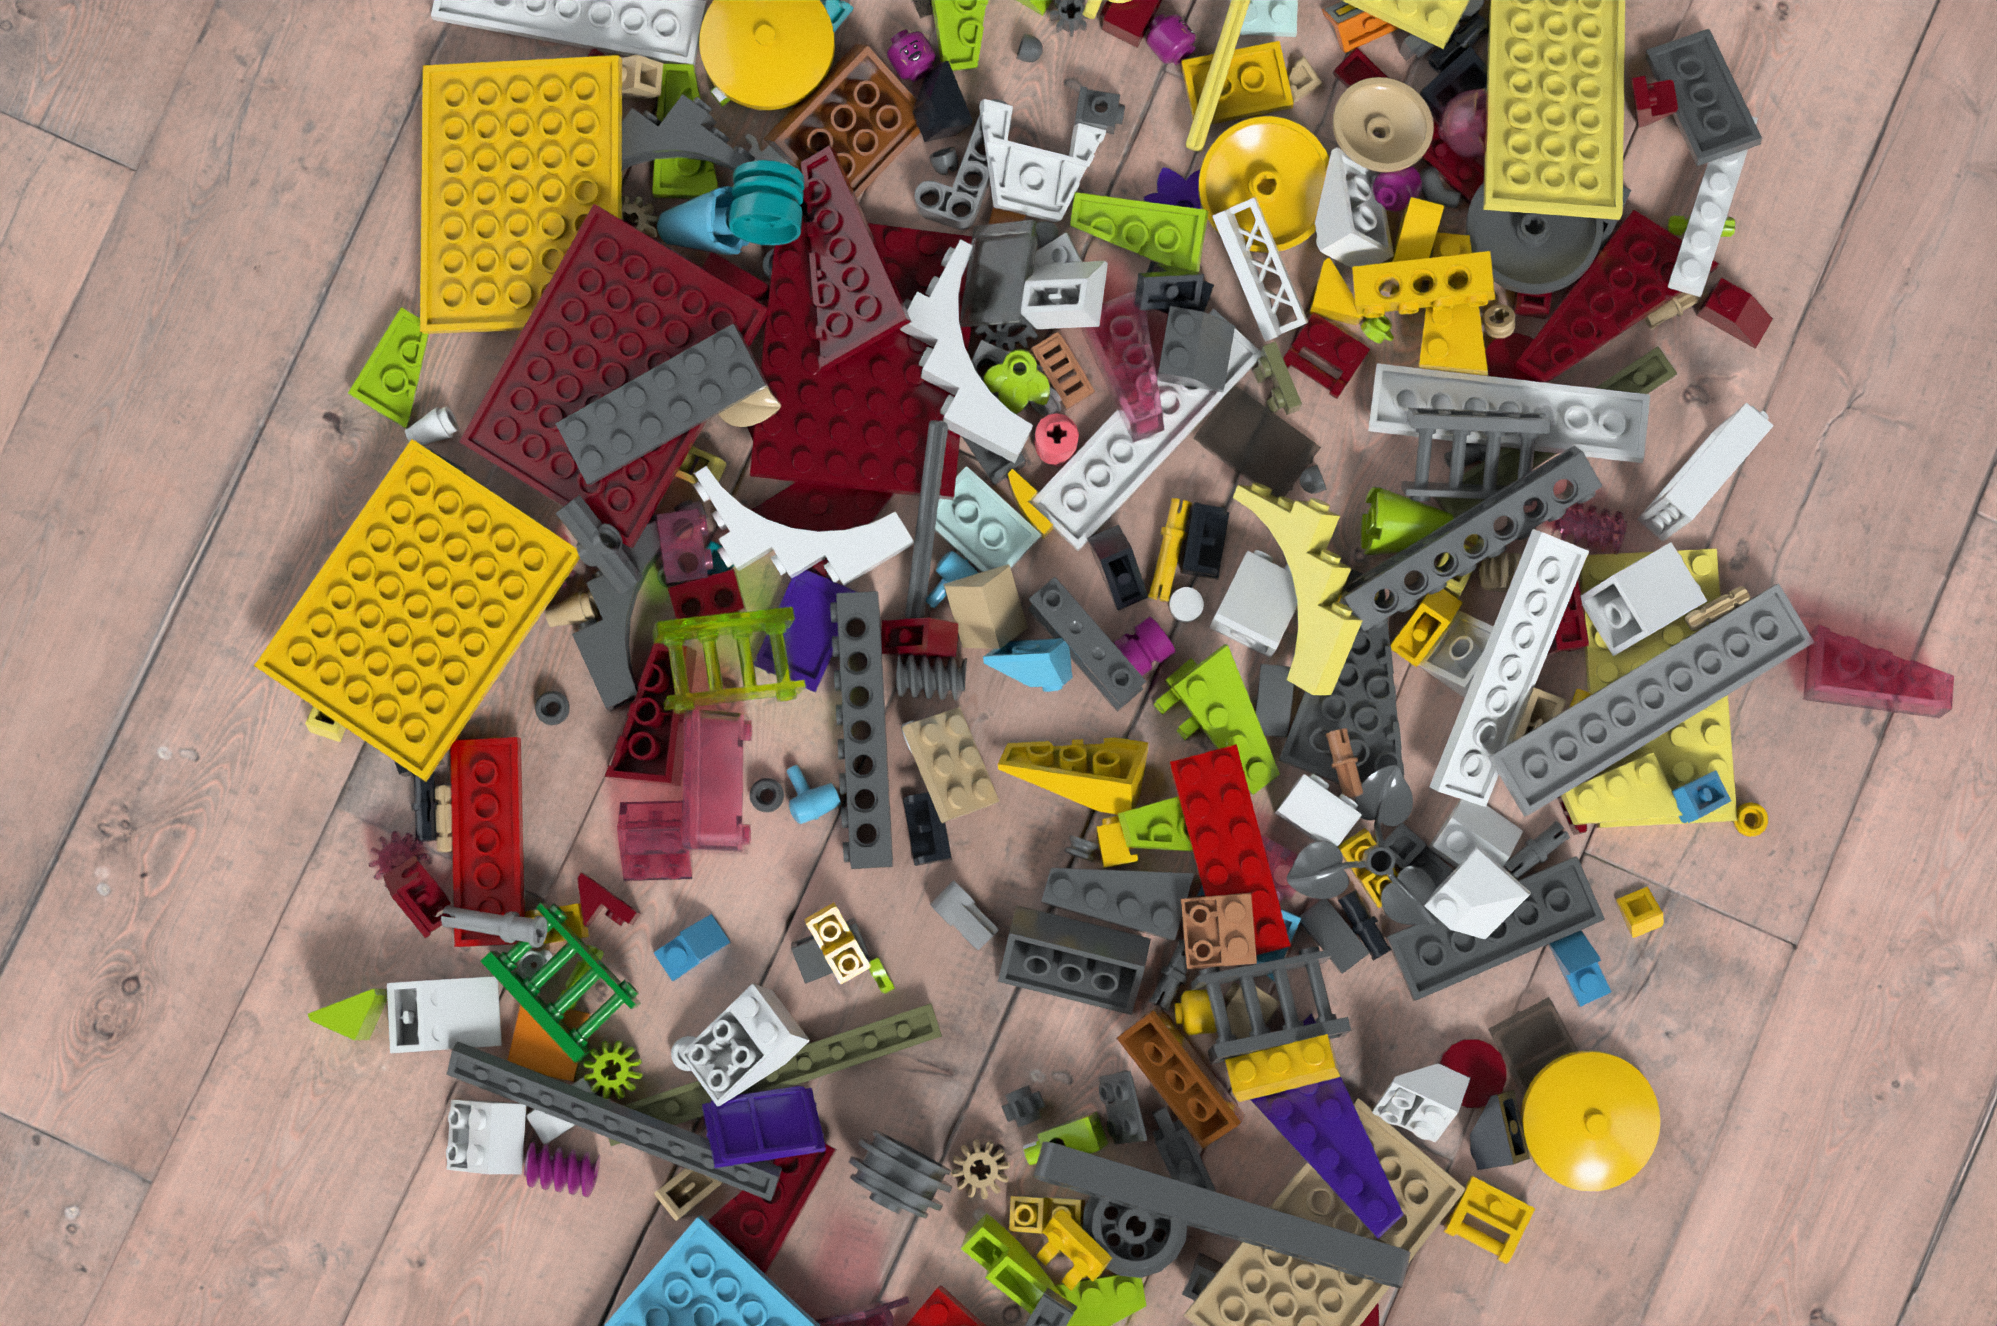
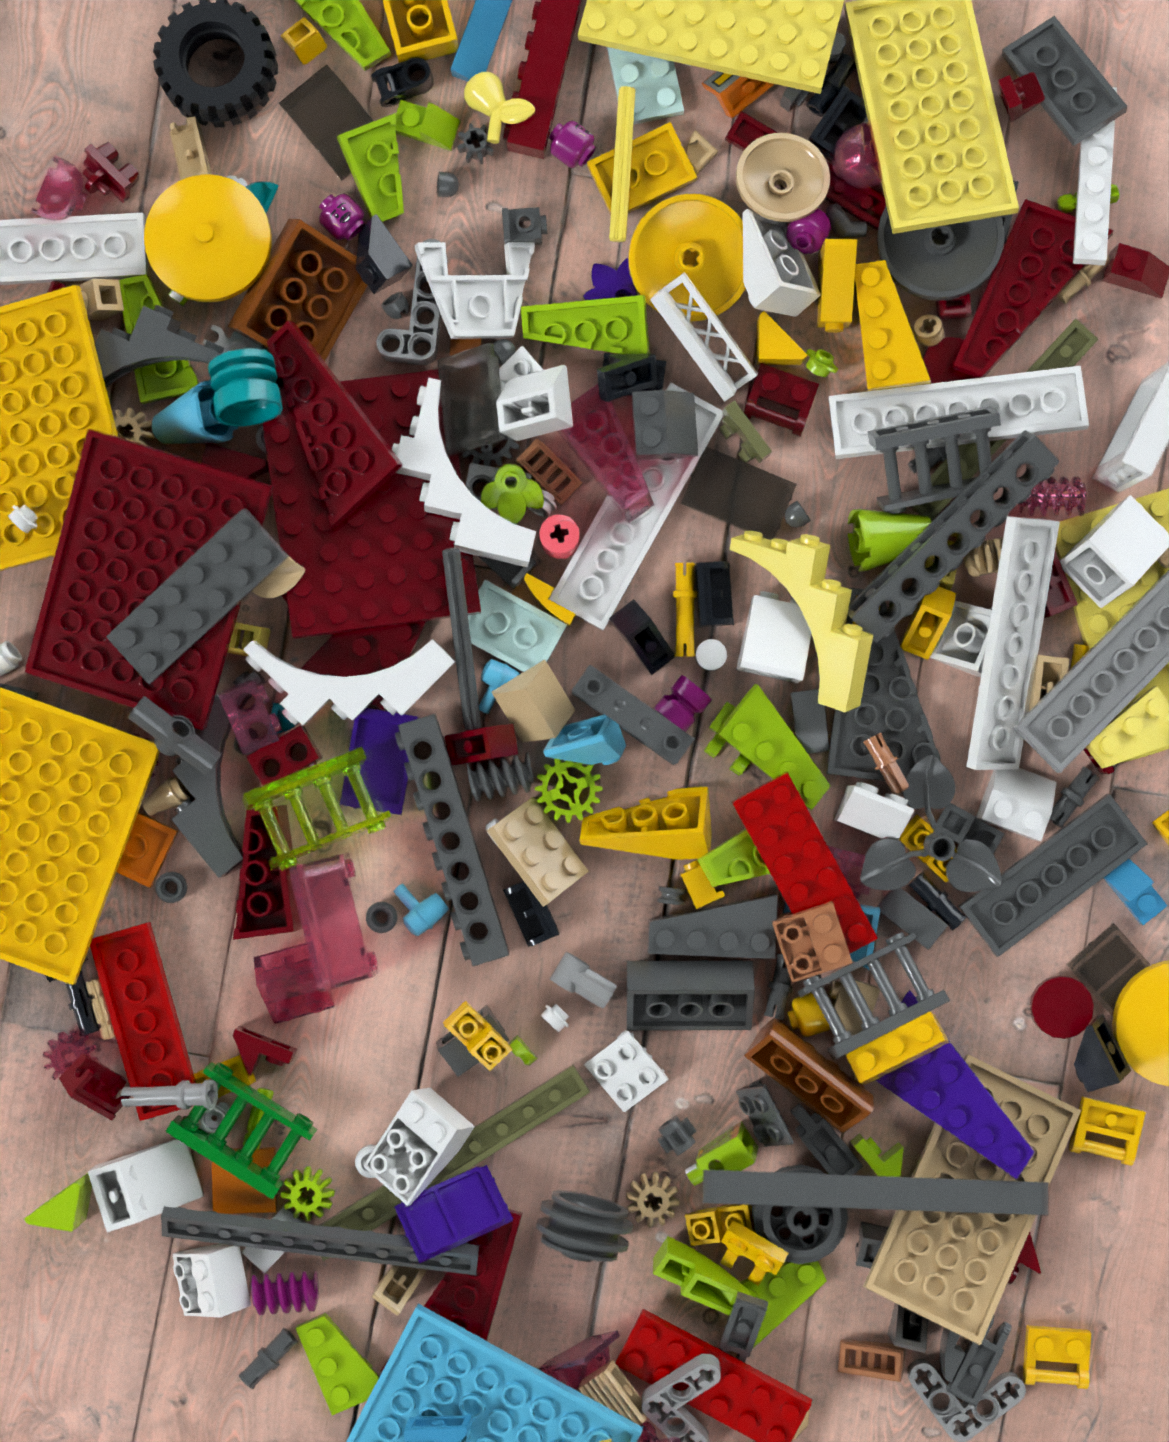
camera: 20 degrees left, 5 degrees up
(501, 281) = (23, 518): none -> white plate
(524, 1237) = (268, 1358): none -> dark grey pin
(536, 662) = (146, 850): none -> orange tile
(596, 1265) = (338, 1367): none -> lime wing
(692, 947) = (350, 1068): dark azure slope -> none
(925, 947) = (555, 1017): none -> white plate
(983, 709) = (554, 794): none -> lime gear
(986, 1024) = (626, 1071): none -> white hinge
(1227, 1176) = (888, 1164): none -> lime slope
(1406, 274) = (897, 289): yellow brick -> none
(1423, 1100) = (1028, 1045): white slope -> none
(1477, 896) = (1031, 853): white slope -> none

